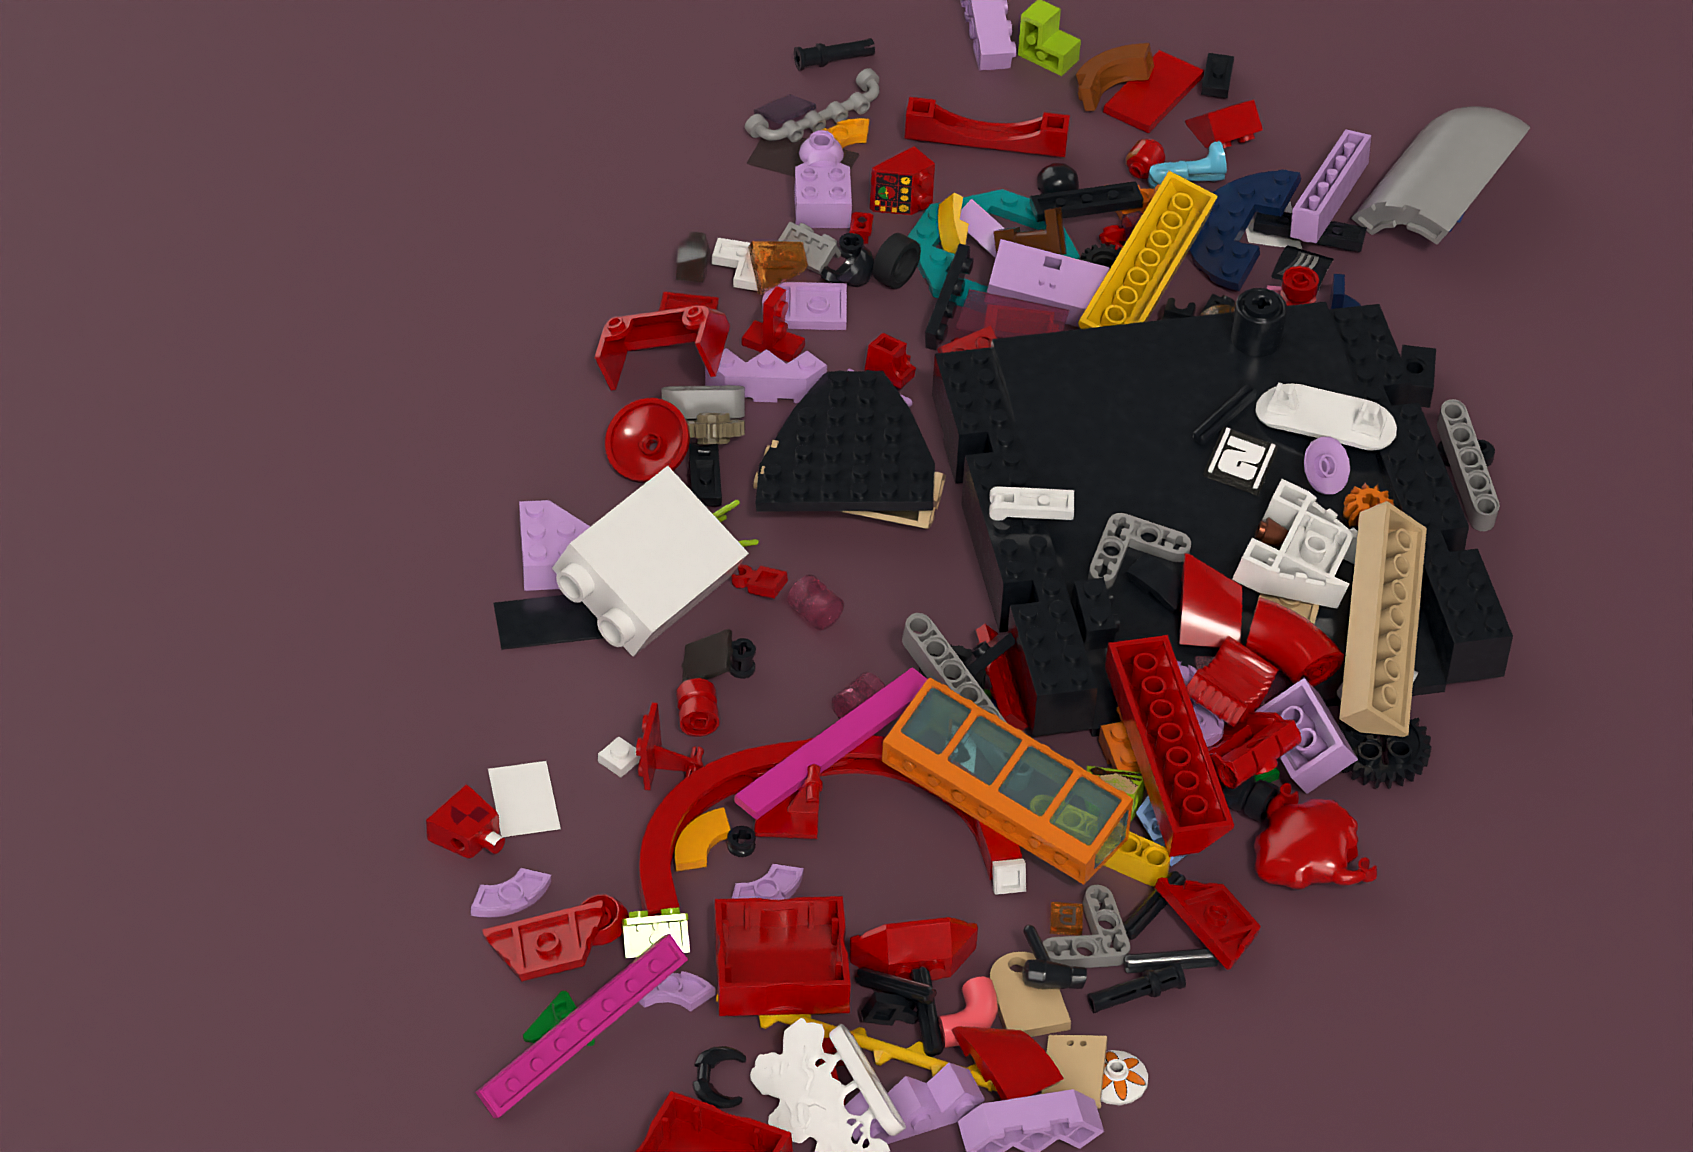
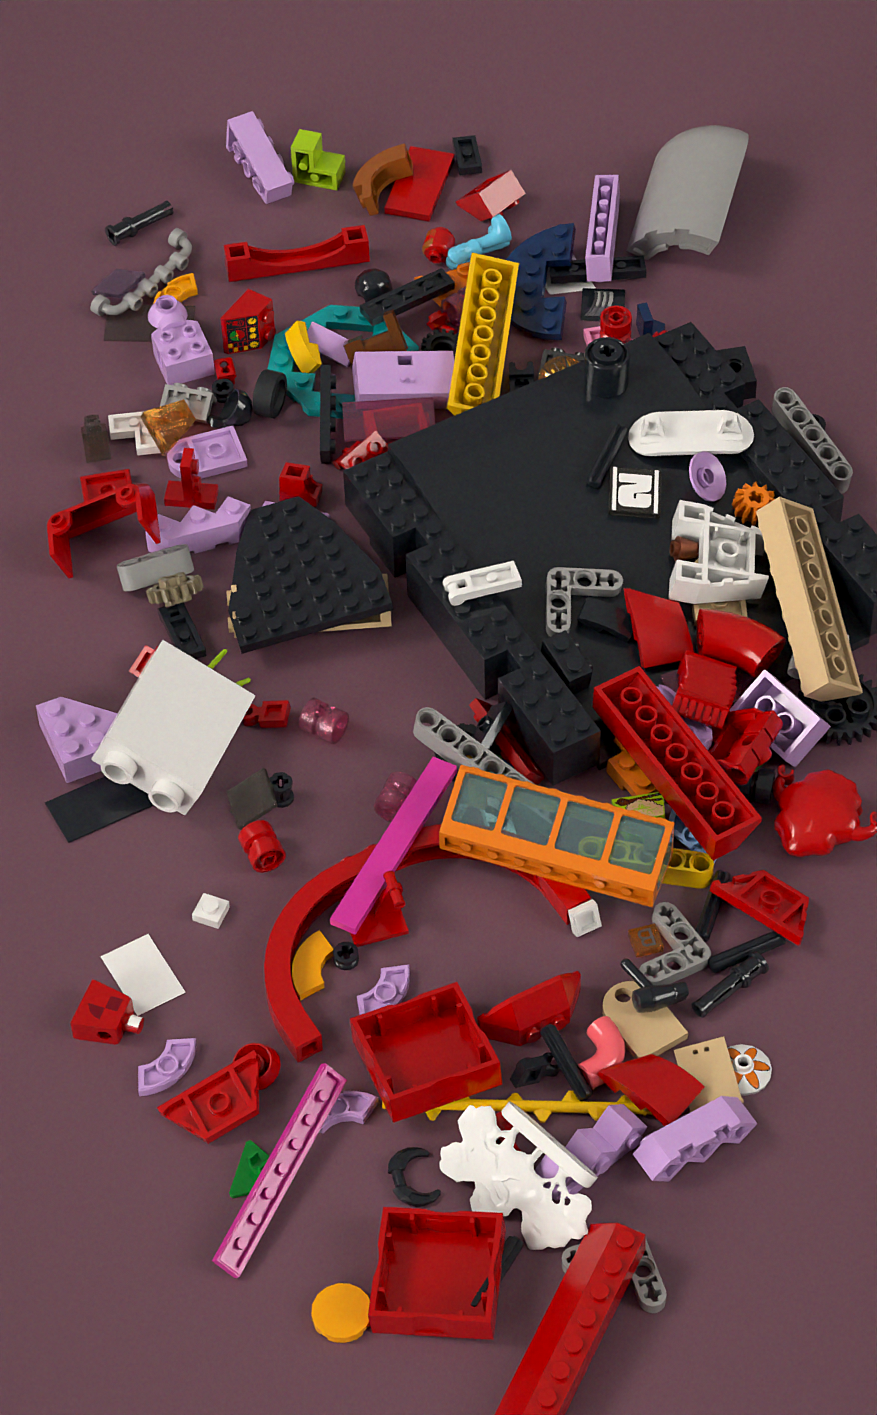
camera: 15 degrees left, 5 degrees up
(639, 427) = (109, 607): red dish -> none
(643, 931) = (299, 1067): bracket -> none
(656, 757) = (245, 902): red plate -> none
(895, 985) = (525, 1047): black axle -> none

